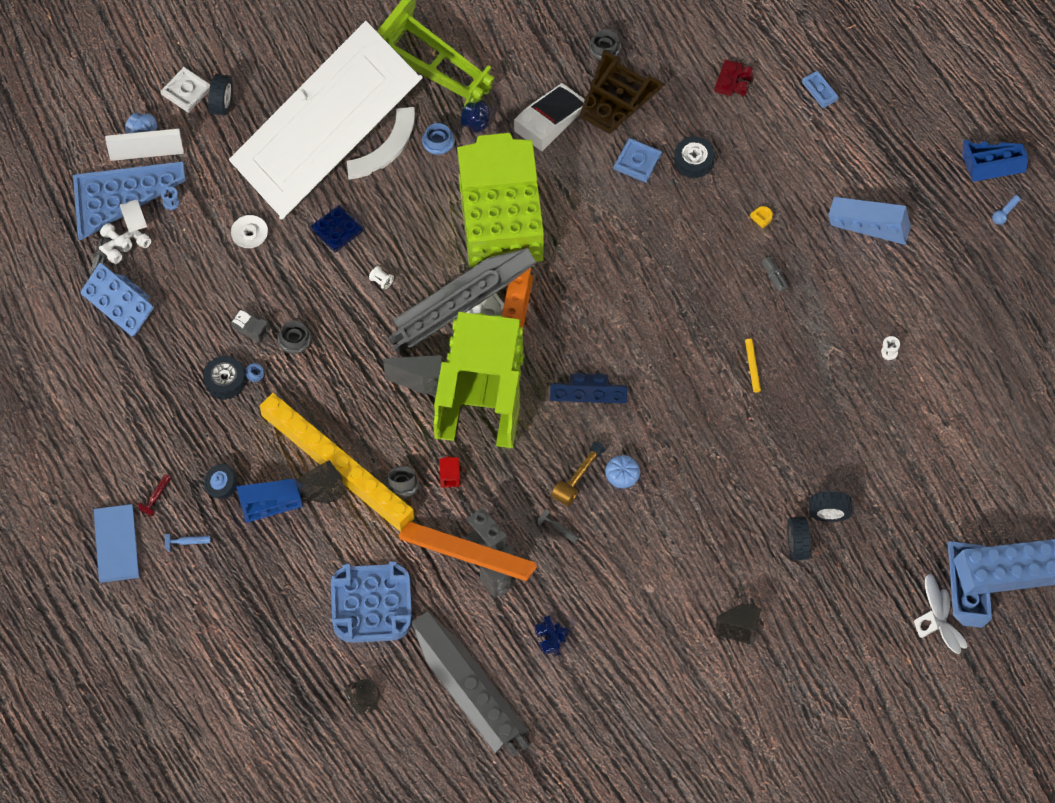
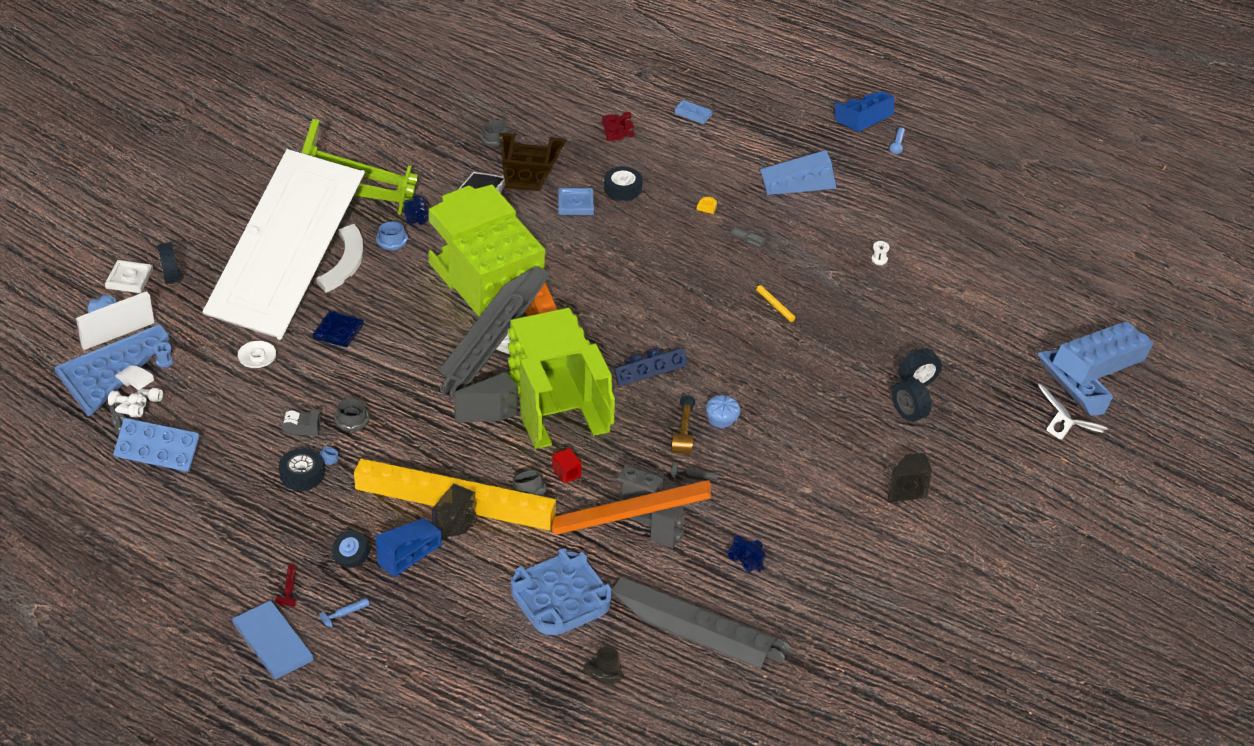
camera: 30 degrees left, 20 degrees down
(381, 277) = (398, 344): white bush -> none

